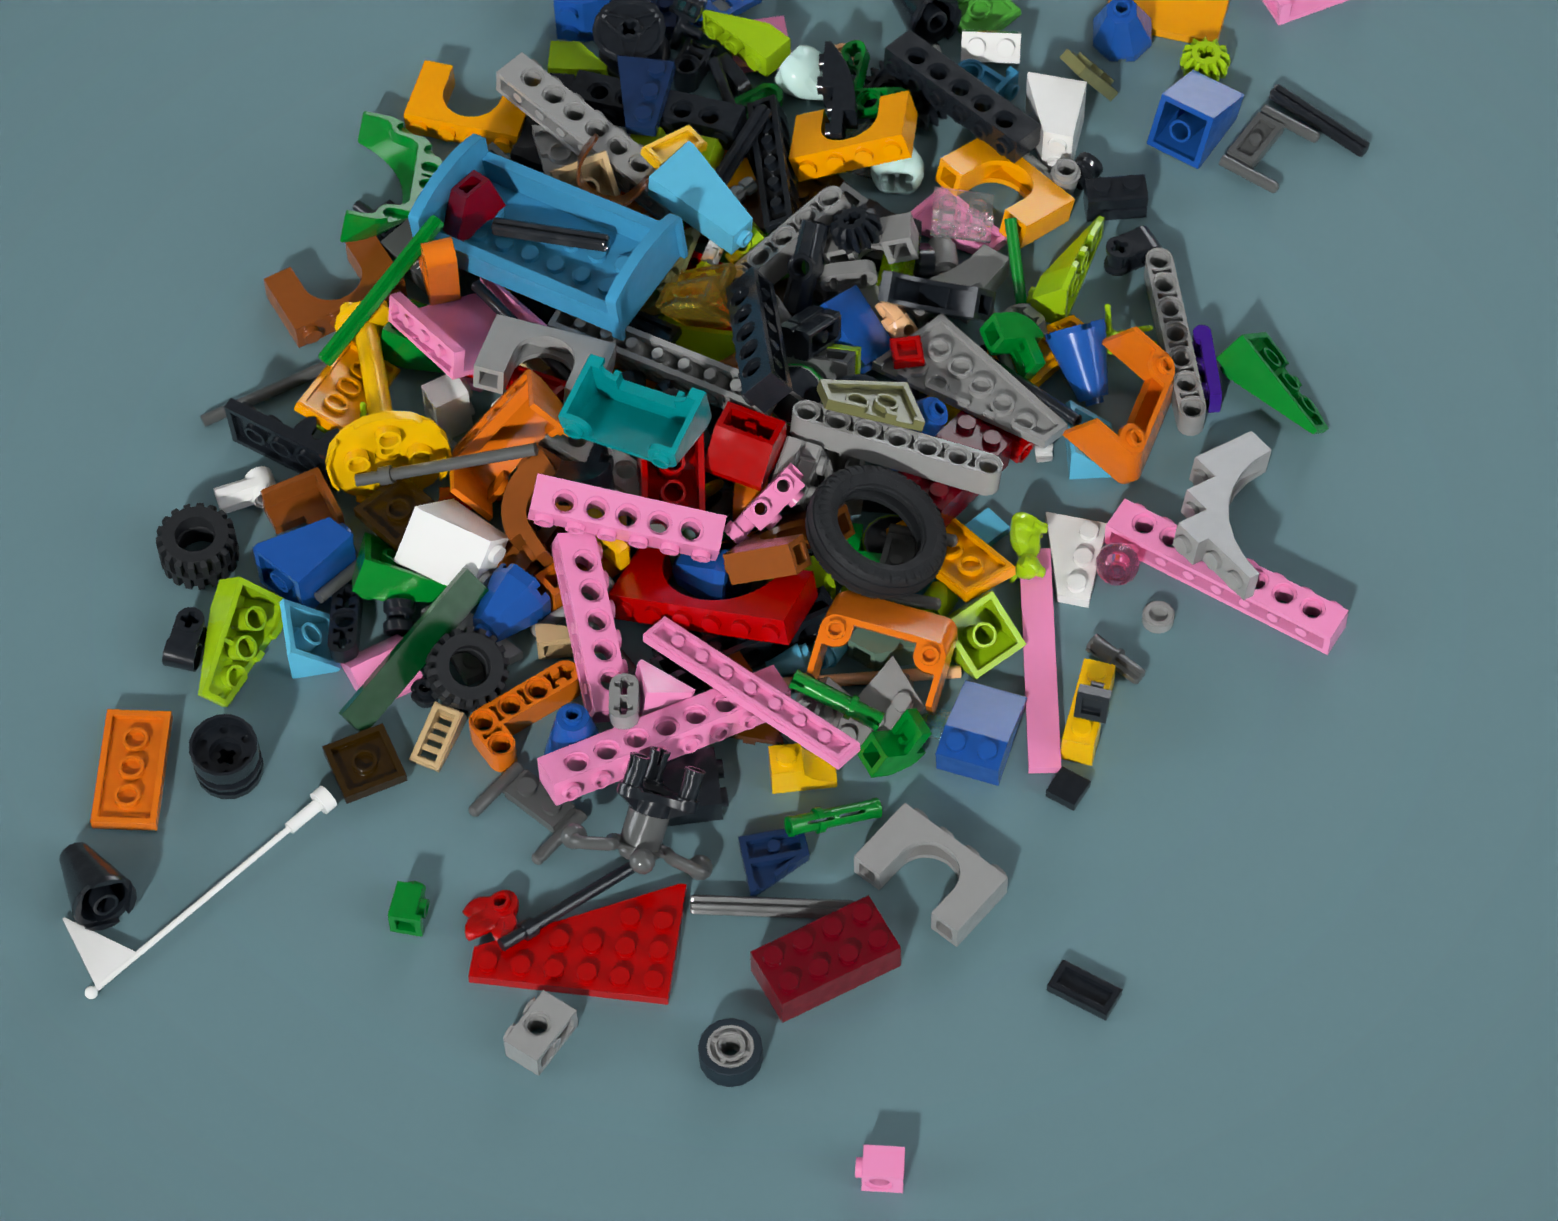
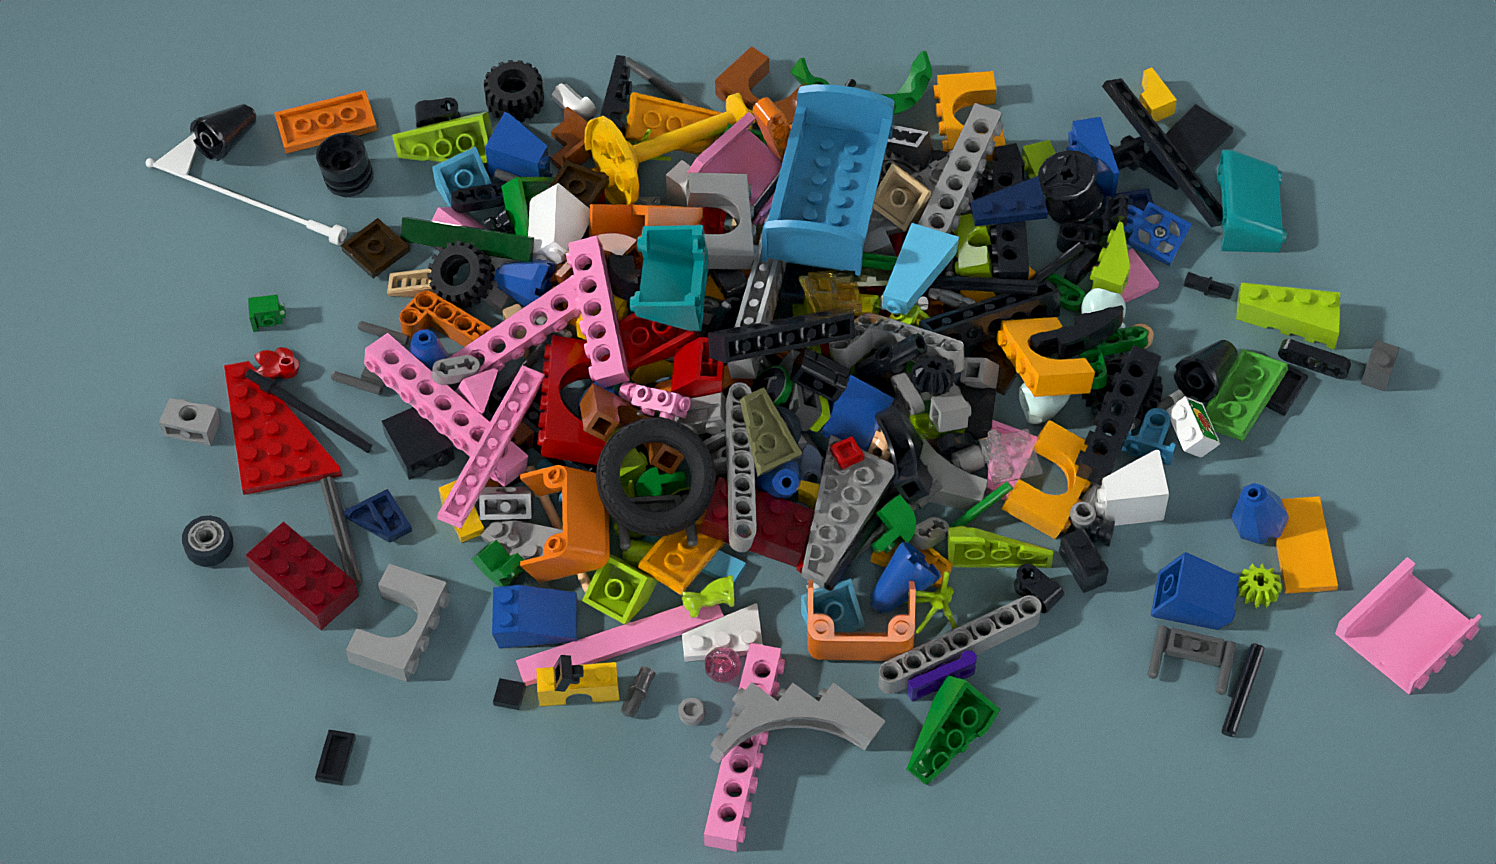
camera: 70 degrees right, 0 degrees up
(380, 291) = (741, 102): green axle -> none
(388, 475) = (598, 168): dark grey bar -> none
(471, 206) = (839, 127): dark red slope -> none
(550, 234) = (835, 183): black axle -> none
(623, 199) = (888, 196): reddish brown piece -> none
(648, 816) = (371, 417): wheel -> none
(663, 148) = (970, 241): yellow tile -> none
(799, 823) = (417, 535): green pin -> none
(837, 700) = (507, 514): green pin -> none
(881, 1168) = (140, 666): bright pink brick -> none
(1090, 73) = (1192, 497): olive wing -> none

